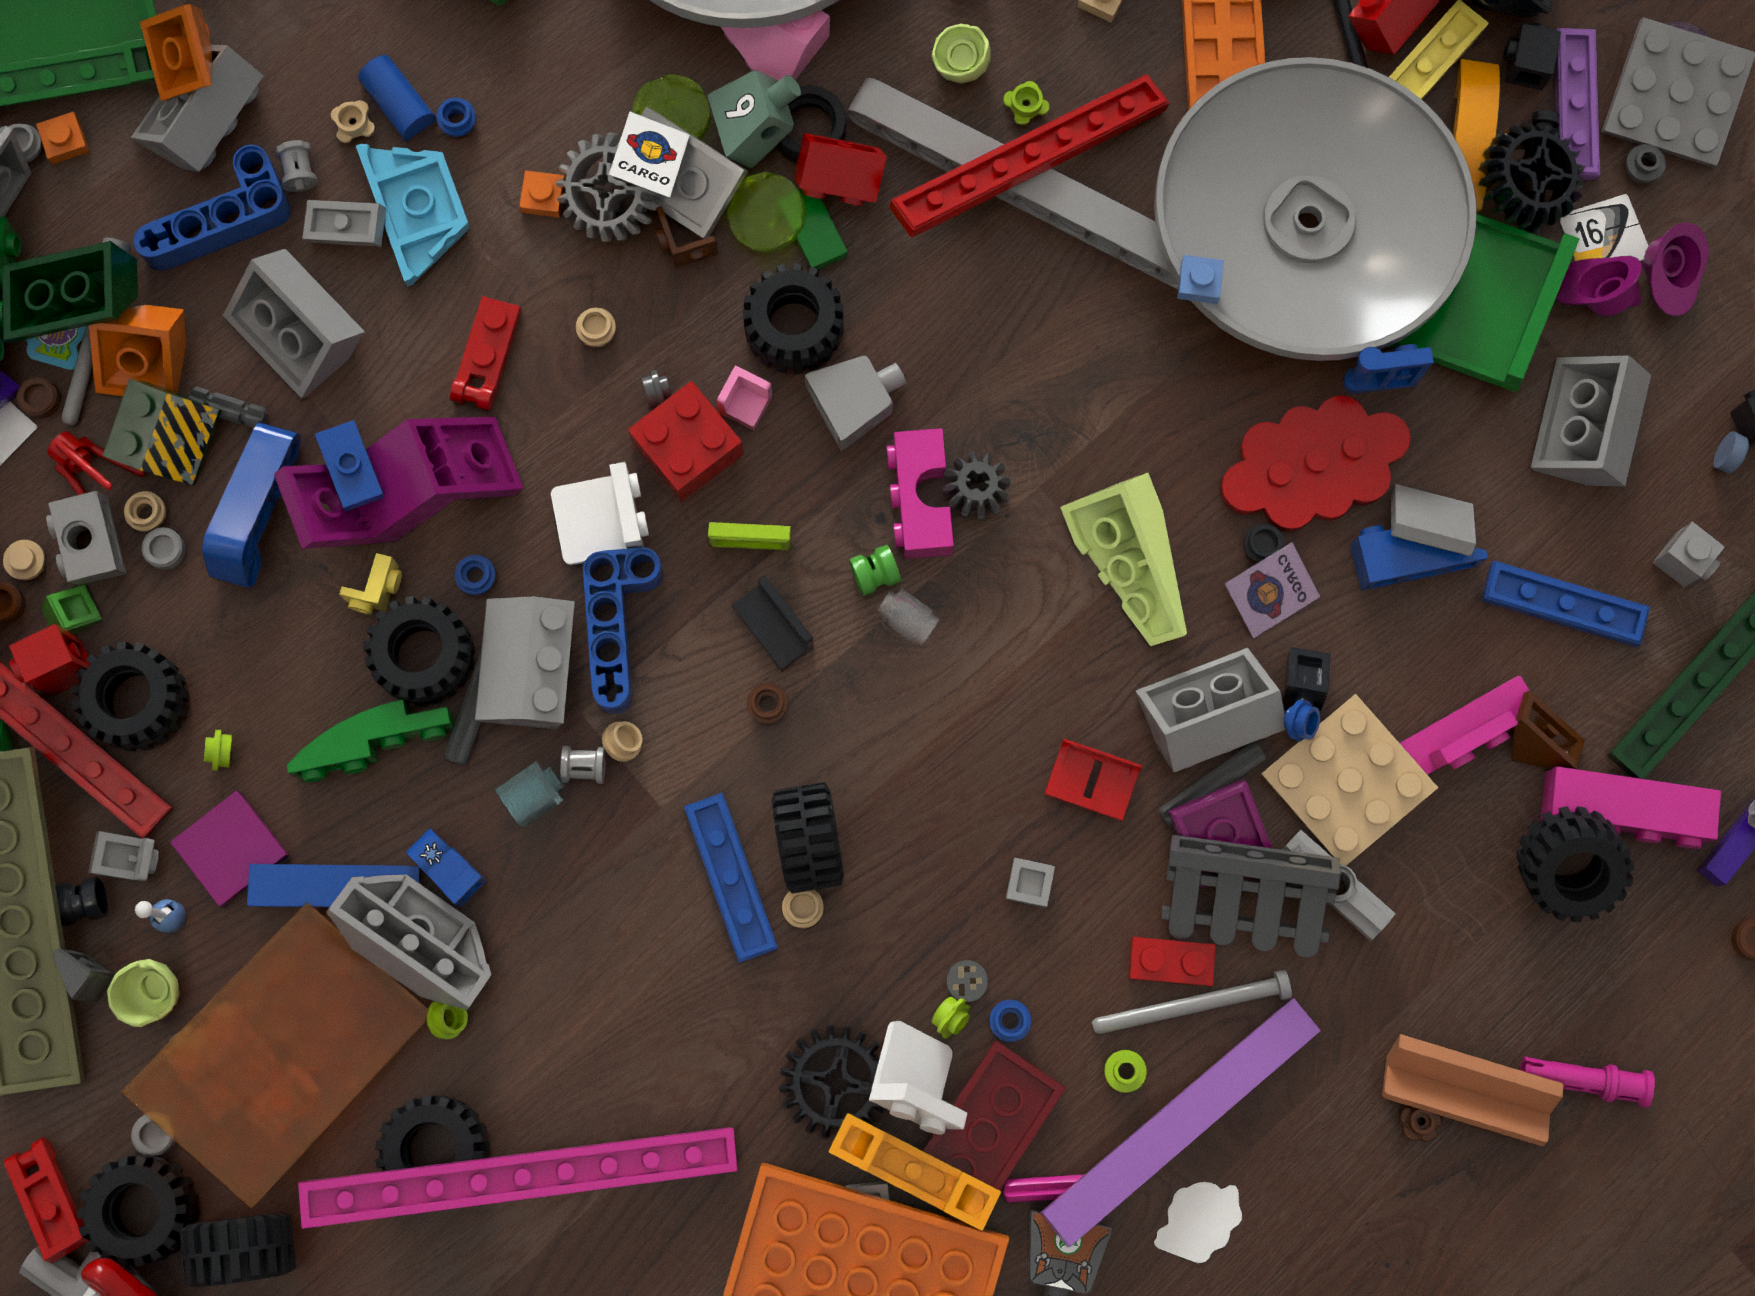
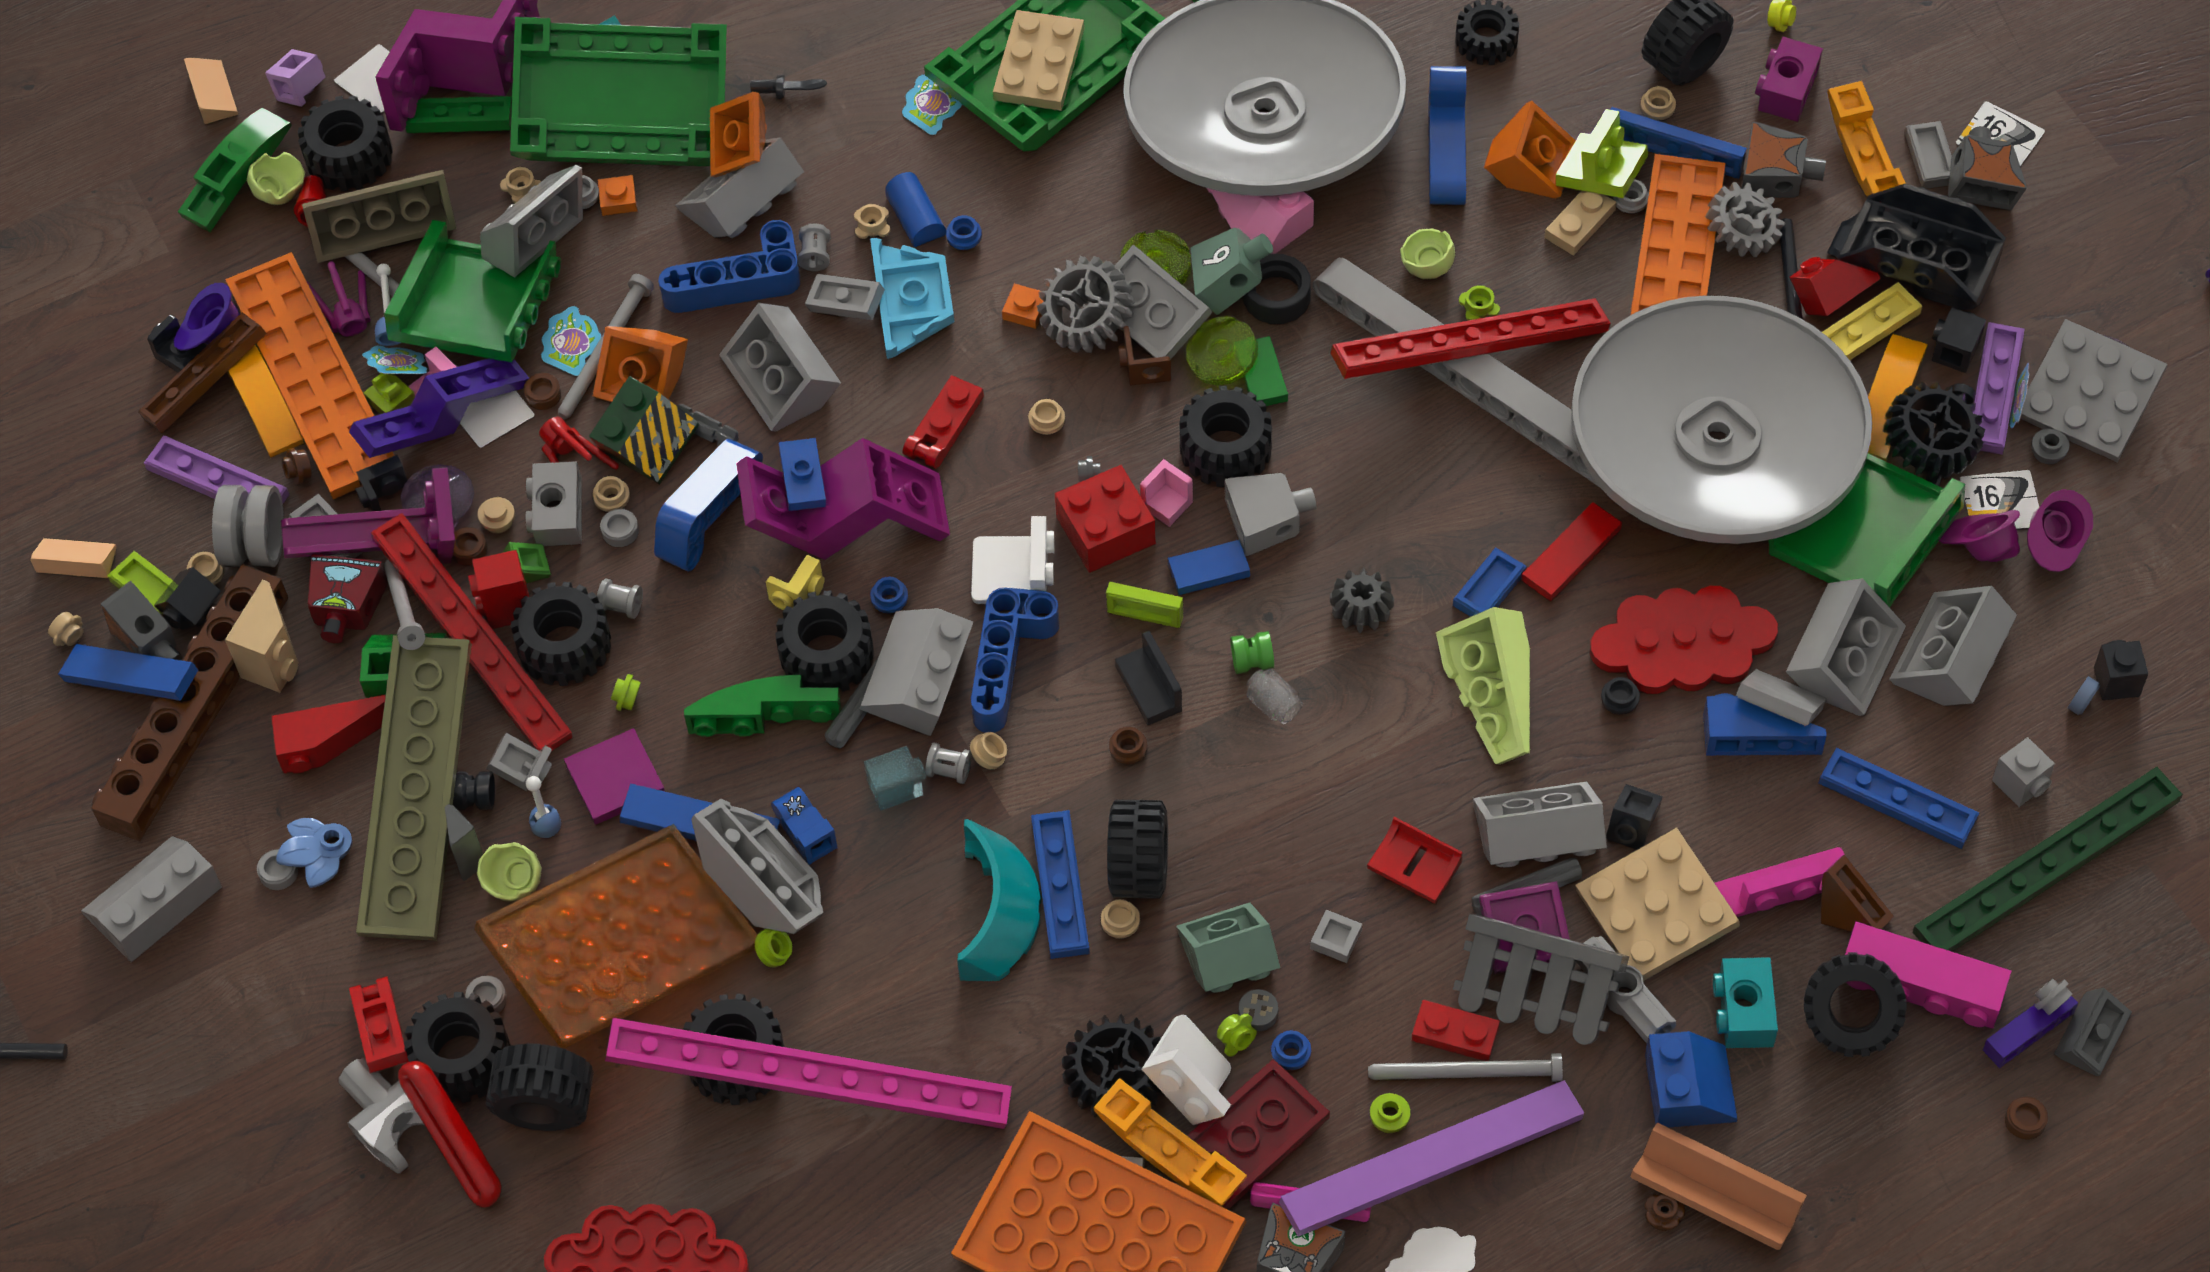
camera: 20 degrees right, 20 degrees down
(67, 290) = (594, 299): dark green slope -> none
(184, 638) = (620, 598): none -> light grey bush
(649, 154) = (1126, 277): white sticker -> none
(689, 916) = (1013, 909): none -> teal windscreen
(806, 474) = (1208, 567): none -> blue tile
(839, 169) = (1294, 322): red brick -> none
(922, 528) = (1311, 571): dark pink arch -> none
(922, 918) = (1229, 947): none -> sand green slope
(1103, 438) = (1489, 583): none -> blue tile
(1180, 382) = (1571, 551): none -> red tile
(1200, 279) = (1599, 451): medium blue plate -> none
(1272, 590) = (1619, 735): clear purple sticker -> none
(1302, 720) = (1620, 840): blue plate -> none
(1388, 370) = (1776, 568): blue plate -> none
(1418, 974) = (1689, 1080): none -> blue slope
(1469, 852) = (1751, 981): none -> teal brick
(1483, 442) = (1846, 646): none -> light grey slope
(1605, 1082) = (1853, 1211): dark pink pin -> none
(1610, 116) = (2019, 395): none -> sticker

